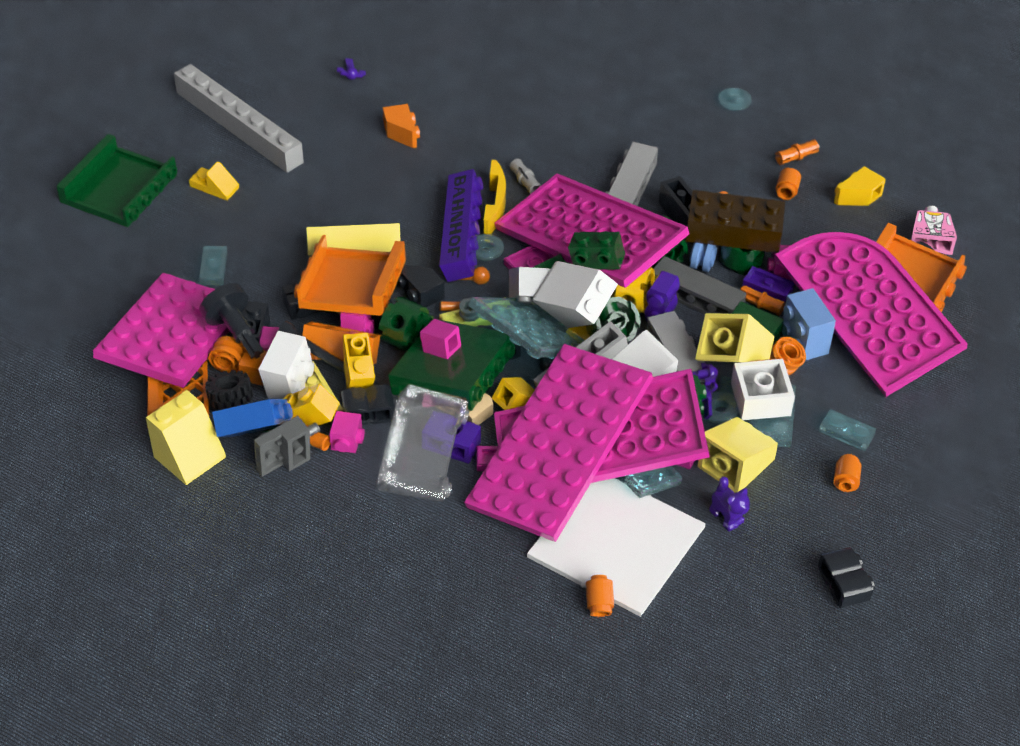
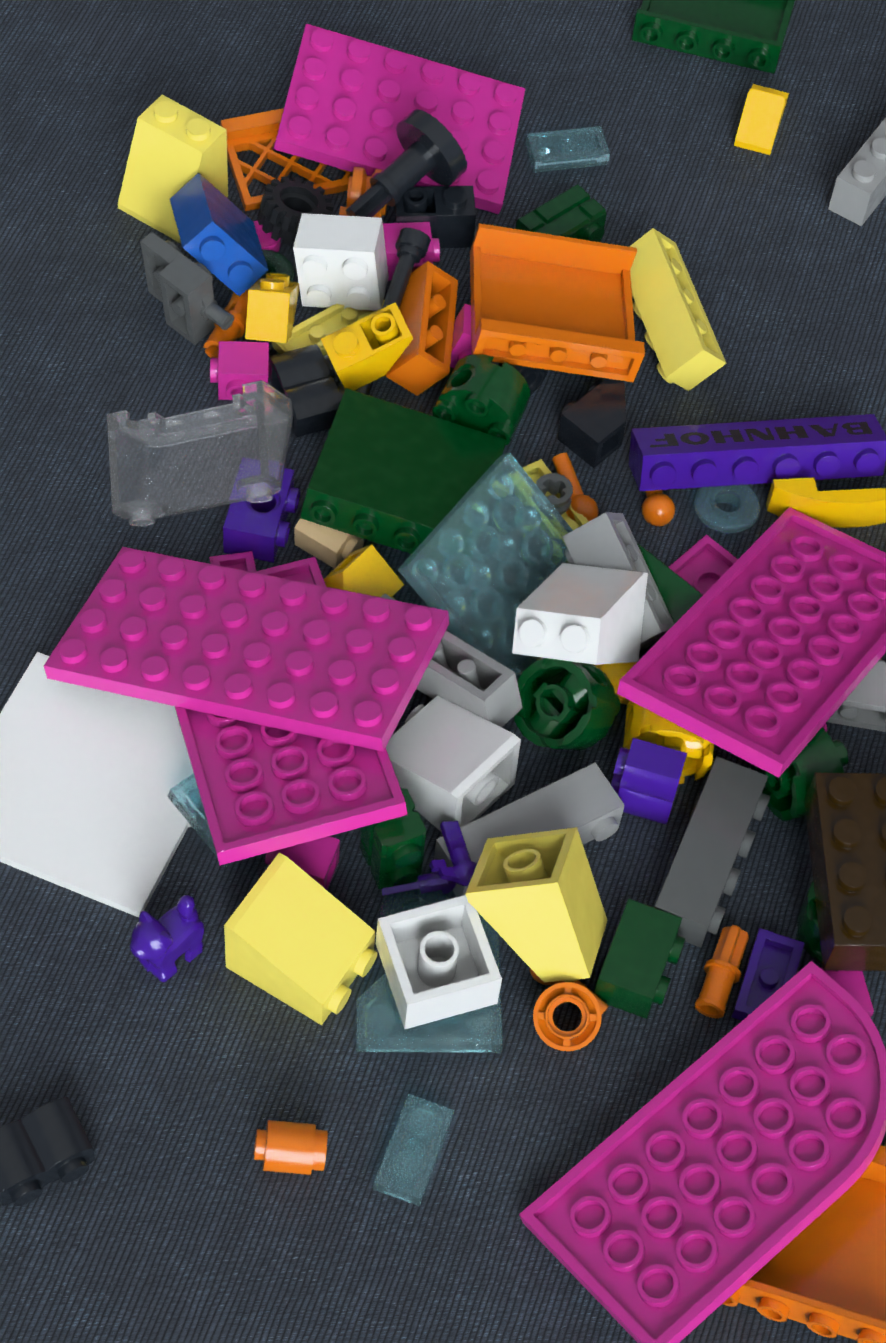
camera: 75 degrees right, 10 degrees up
(273, 274) = (567, 215): none -> dark green brick
(440, 339) = (427, 437): dark pink brick -> none
(597, 250) = (678, 625): dark green brick -> none
(702, 255) = (792, 850): medium blue wheel -> none
(808, 322) = (649, 1042): medium blue brick -> none

